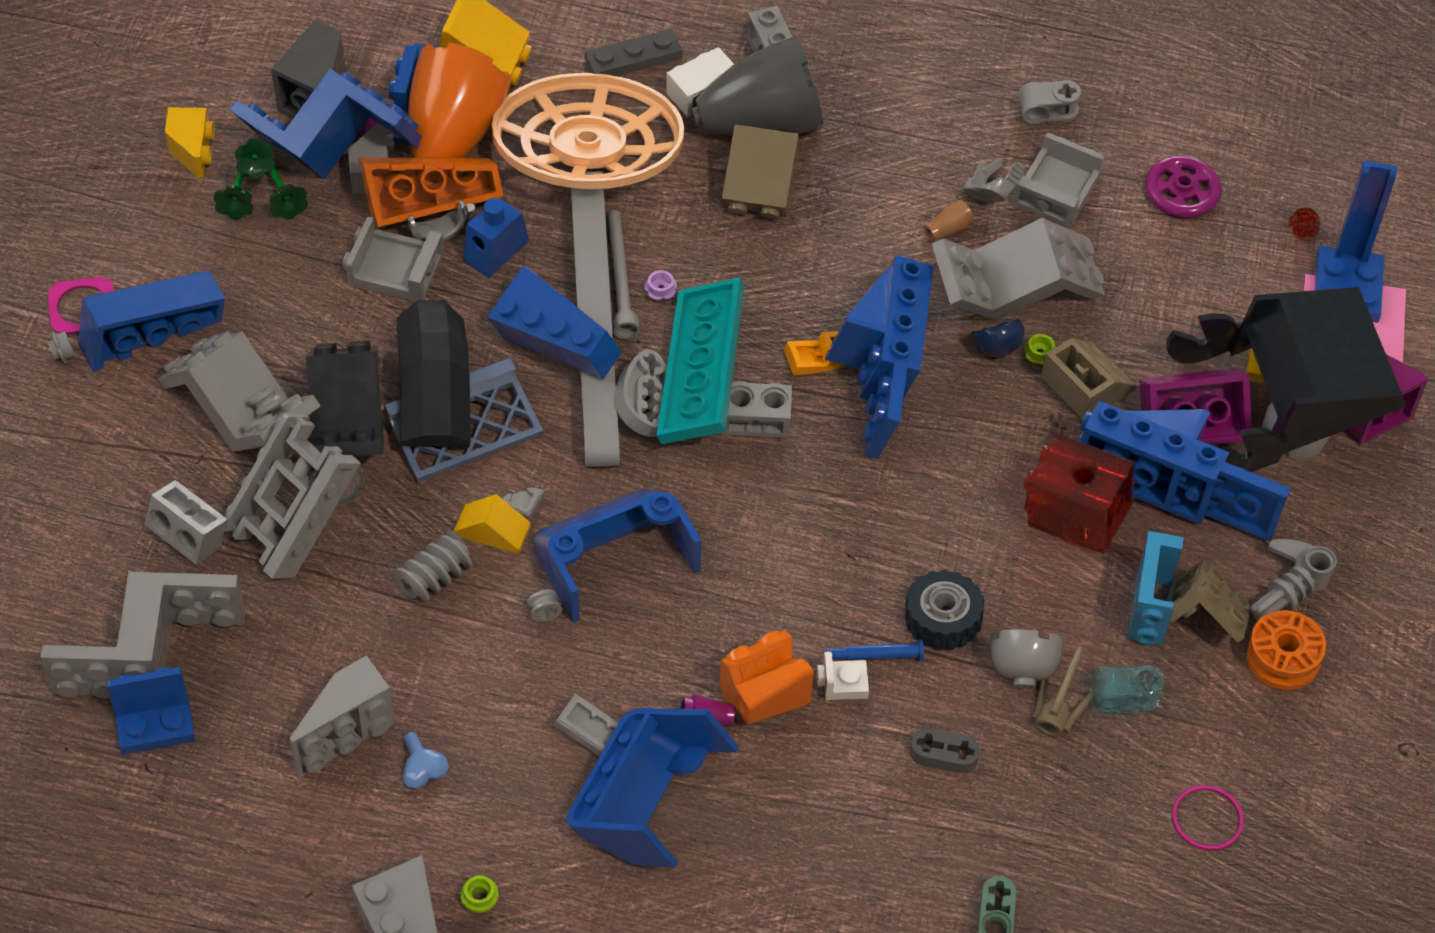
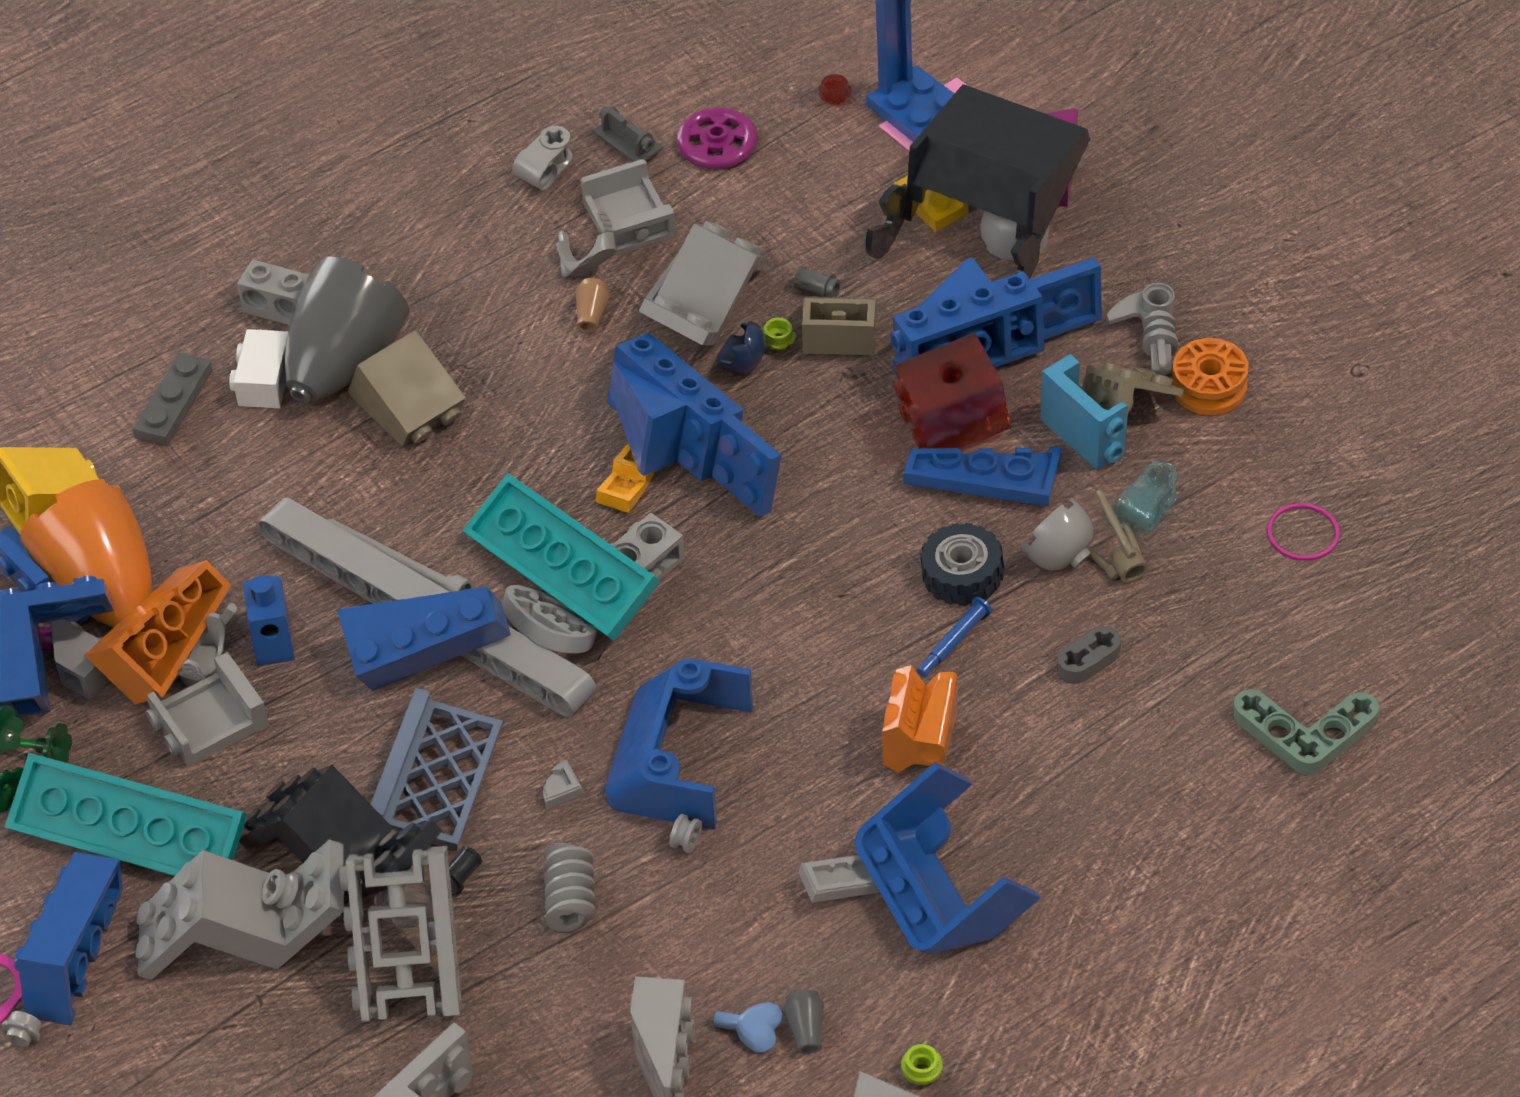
camera: 45 degrees left, 5 degrees down
(185, 522) = (332, 1043): light grey brick -> none
(263, 280) = (119, 817): none -> teal plate
(393, 494) = (462, 867): none -> black pin
(433, 376) = (375, 750): black piece -> none
(452, 792) = (805, 1019): none -> dark grey cone
(493, 524) = (560, 818): yellow slope -> none
(588, 139) = (251, 475): light nougat dish -> none
(660, 285) = (442, 540): lavender plate -> none
(722, 712) = (892, 786): magenta cone -> none
(843, 678) = (969, 671): white bracket -> none
(1047, 571) = (1005, 476): none -> blue wing
(1114, 346) = (817, 283): none -> dark grey pin
(1123, 133) = (625, 136): none -> dark grey hinge
(1219, 391) = (931, 261): magenta slope -> none

